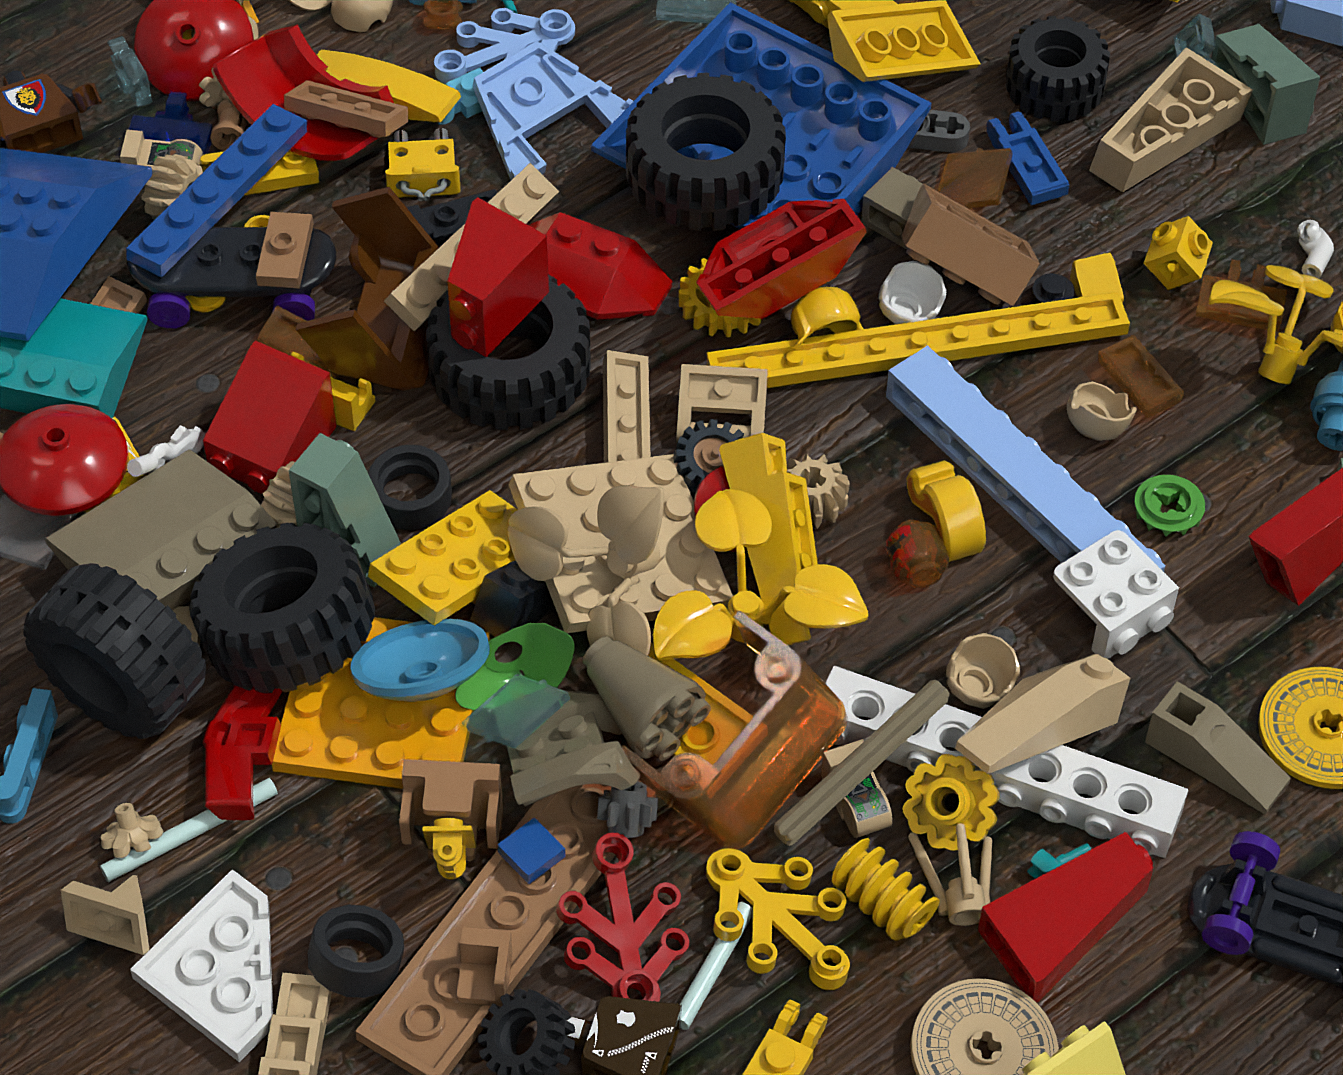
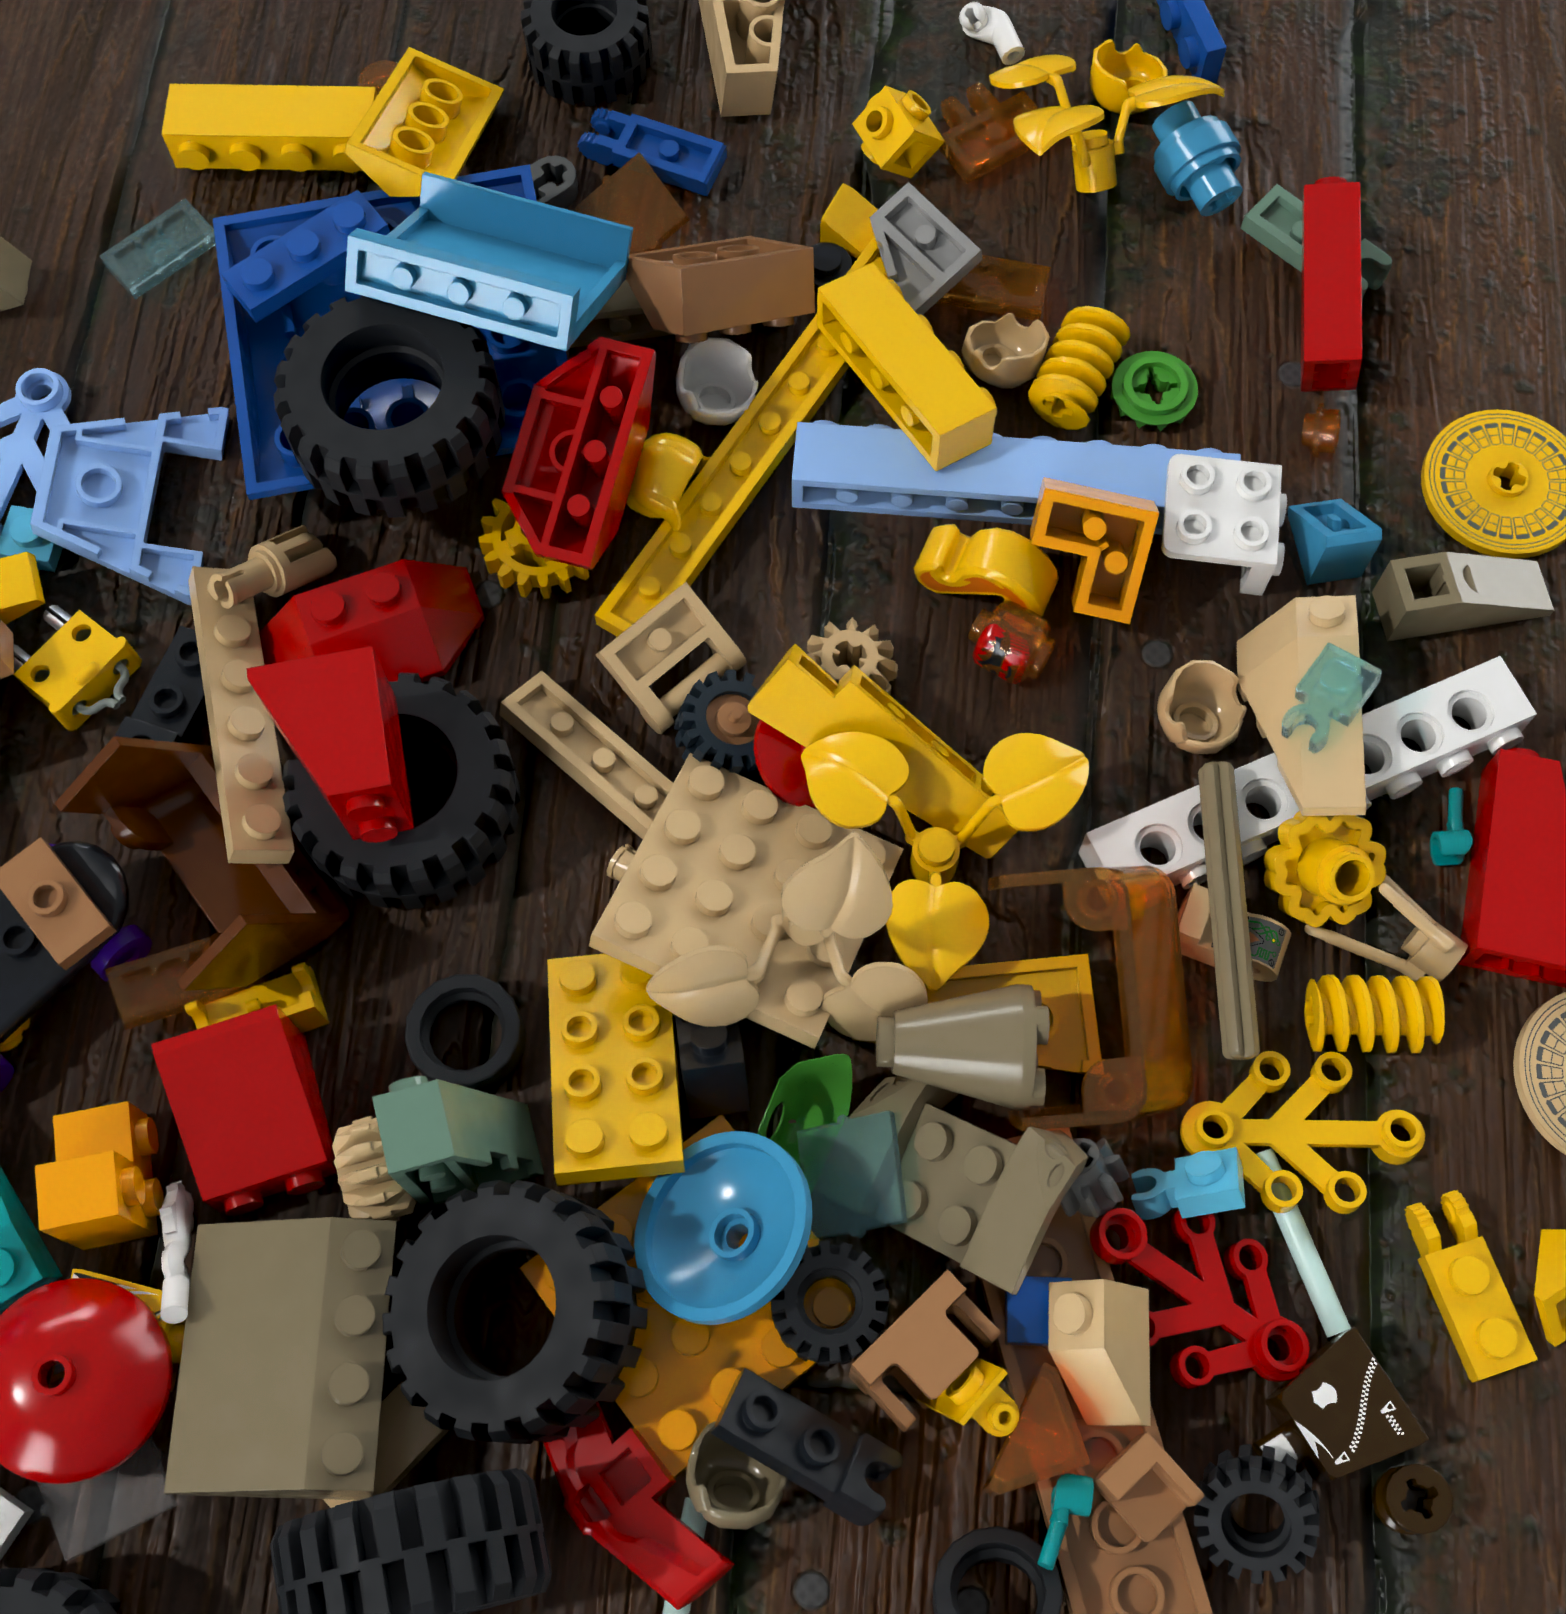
camera: 45 degrees left, 15 degrees up
(169, 392) = (101, 1178): none -> light orange brick
(301, 780) = (730, 1485): none -> dark tan hair
(347, 800) = (806, 1447): none -> black plate
(432, 724) = (865, 1325): none -> black tyre
(441, 935) = (1070, 1496): none -> teal hand
(456, 893) = (1043, 1441): none -> clear orange slope
(539, 880) = (1102, 1349): none -> tan slope
(570, 196) = (275, 568): none -> tan arm
(690, 878) = (1198, 1186): none -> medium azure plate
(755, 55) = (301, 257): none -> blue plate
(836, 125) = (493, 262): none -> dark azure panel
(1018, 363) = (906, 366): none -> yellow brick
(1025, 539) = (1109, 534): none -> light orange brick
(1043, 698) = (1331, 689): none -> clear light blue plate
(1106, 319) = (921, 248): none -> light grey wing
(1132, 448) = (1078, 366): none -> yellow piece
(1172, 658) = (1333, 540): none -> dark azure slope
(1245, 606) = (1322, 430): none -> clear orange plate

